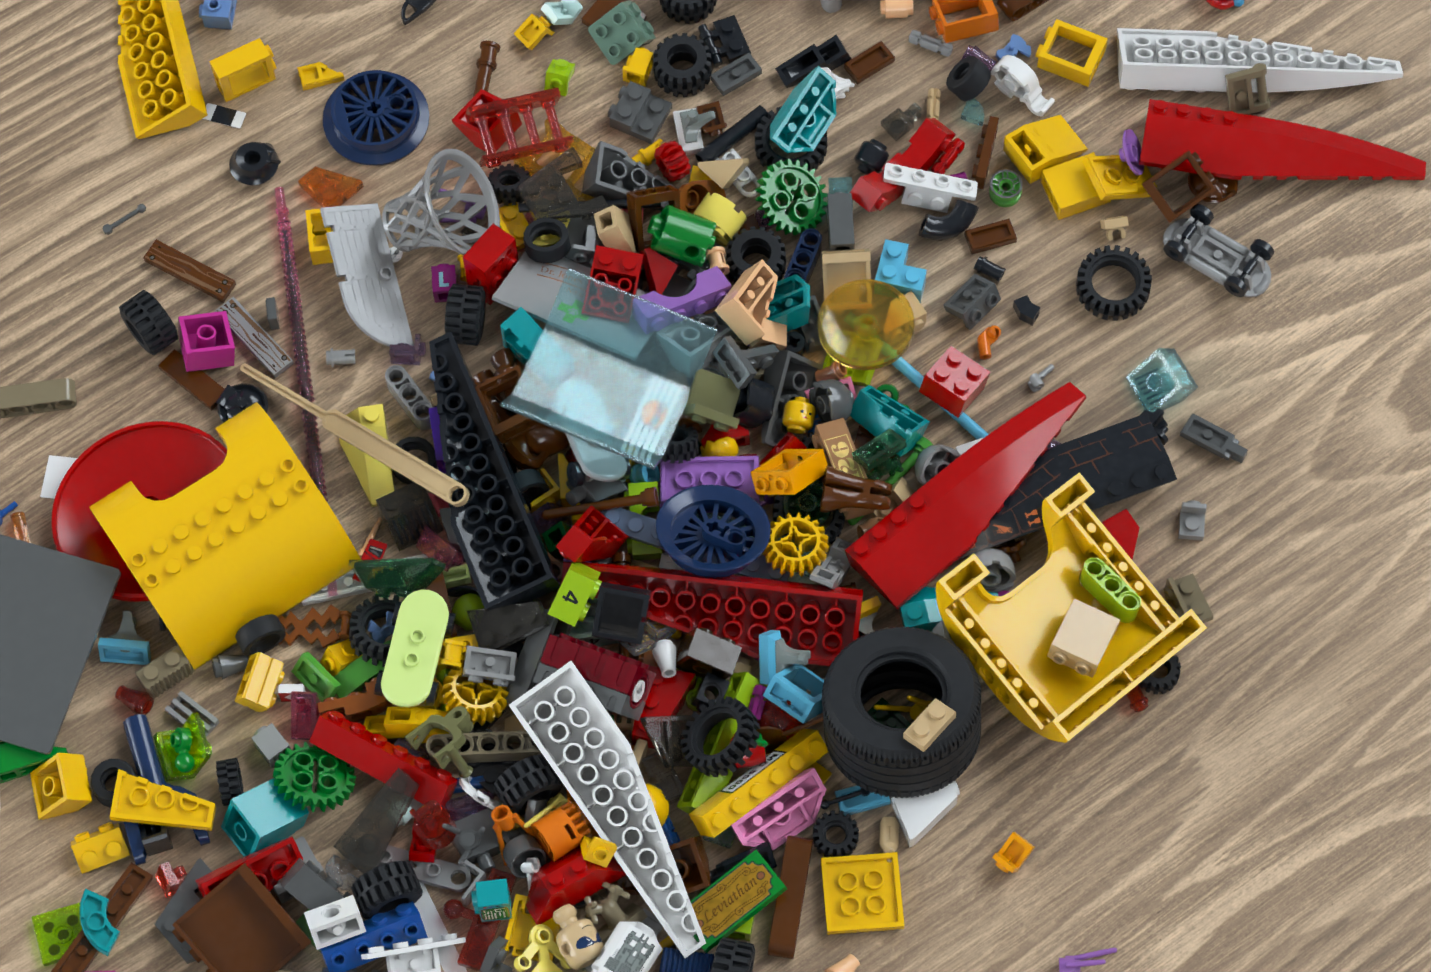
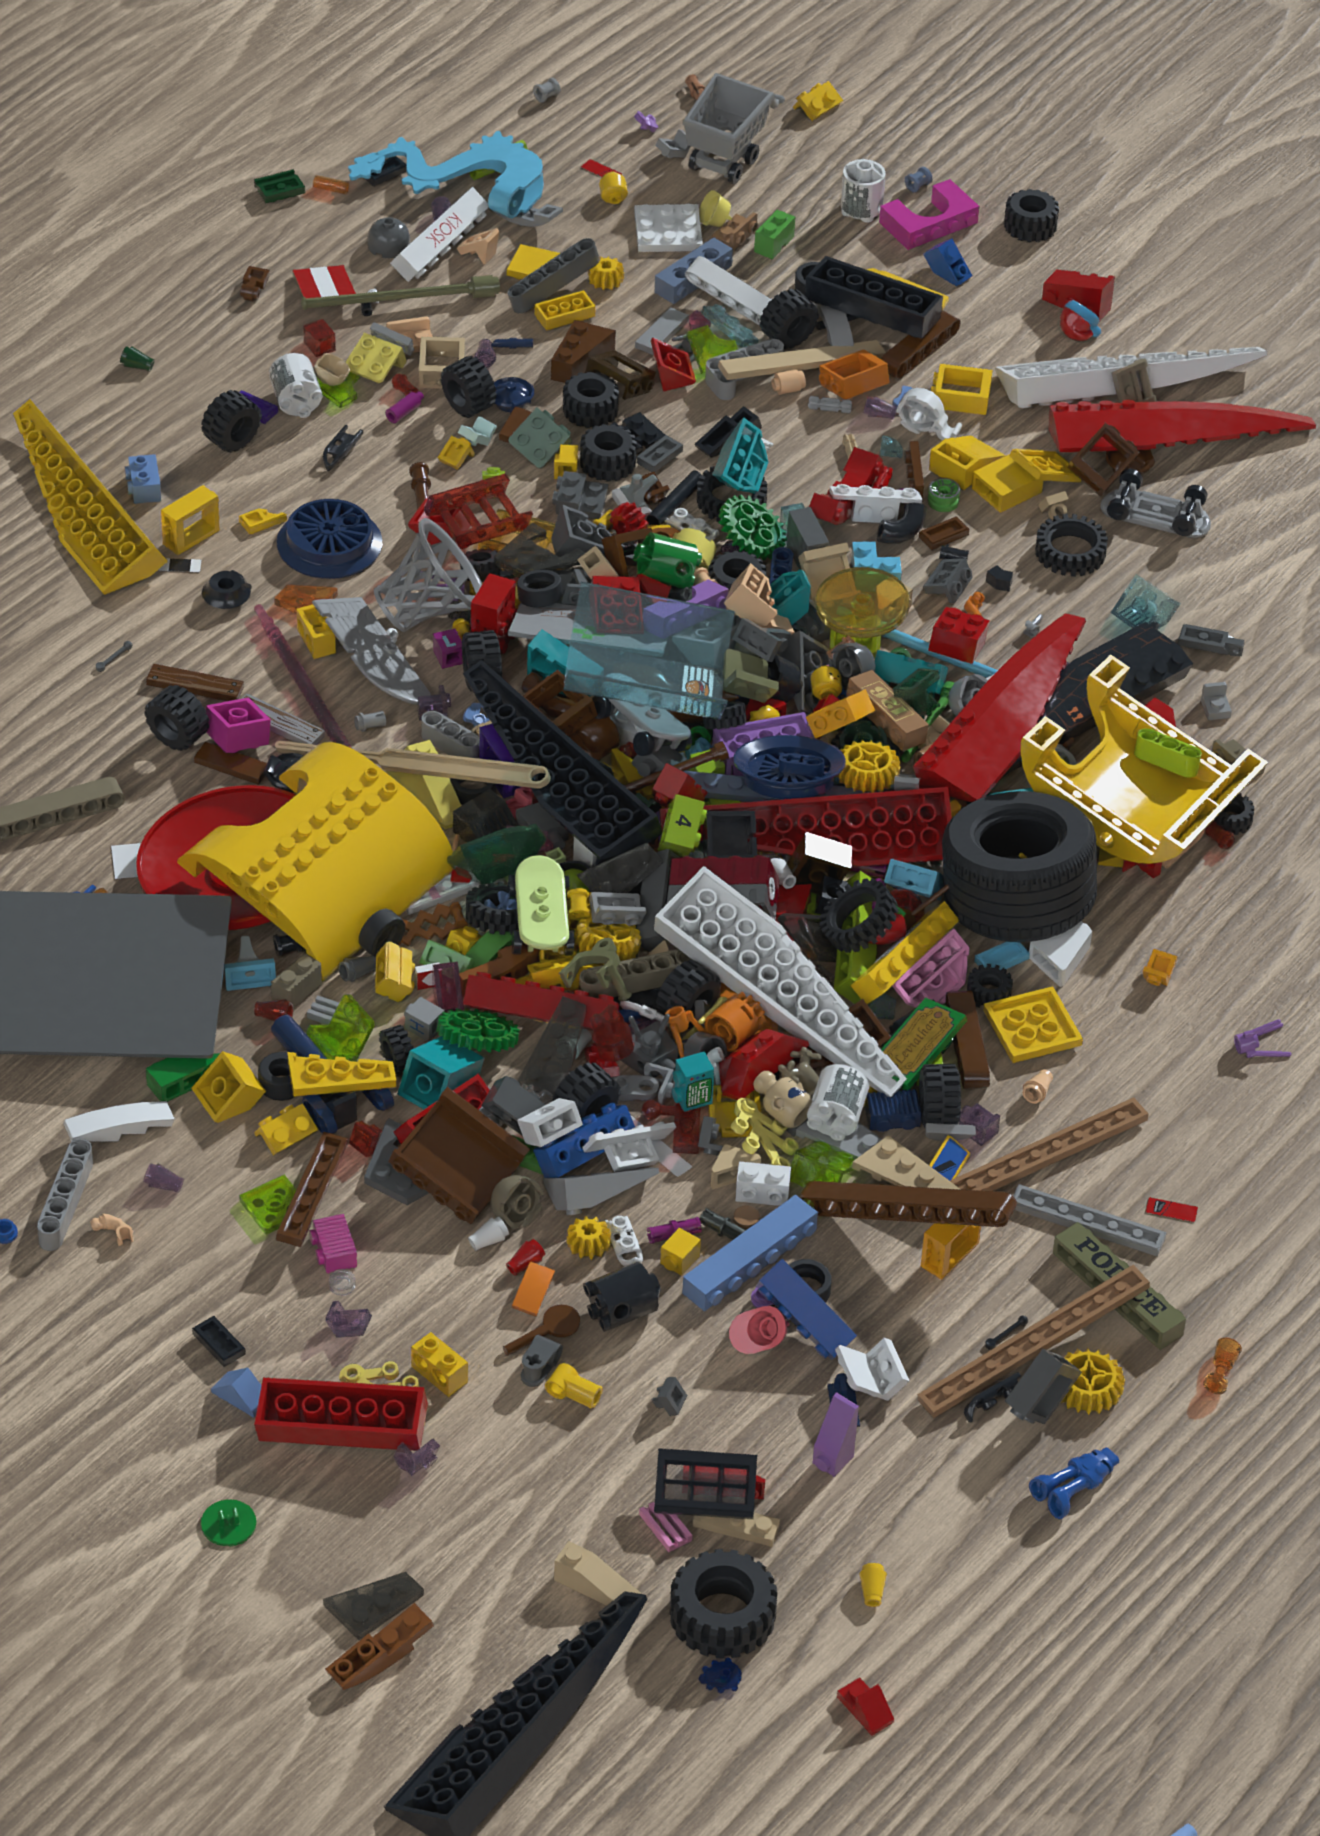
camera: 20 degrees left, 20 degrees down
(95, 922) = (310, 1178): teal tile -> none
(181, 742) = (337, 1027): green plate -> none
(272, 313) = (291, 698): dark grey tile -> none
(597, 850) = (780, 1020): yellow bracket -> none
(724, 171) = (680, 516): tan slope -> none
(777, 656) = (881, 851): piece -> none
(826, 803) = (1003, 948): black hinge -> none
(863, 494) = (898, 716): reddish brown piece -> none
(869, 62) = (780, 427): reddish brown tile -> none
(871, 156) = (808, 486): black head -> none
(889, 835) = (1038, 977): tan piece -> none
(901, 122) = (827, 464): clear smoke plate -> none
(929, 725) = (1058, 845): tan plate -> none
(968, 78) = (877, 419): black tyre -> none
(1083, 638) = (1160, 786): tan panel -> none
(1131, 152) = (1048, 445): medium lavender dish -> none

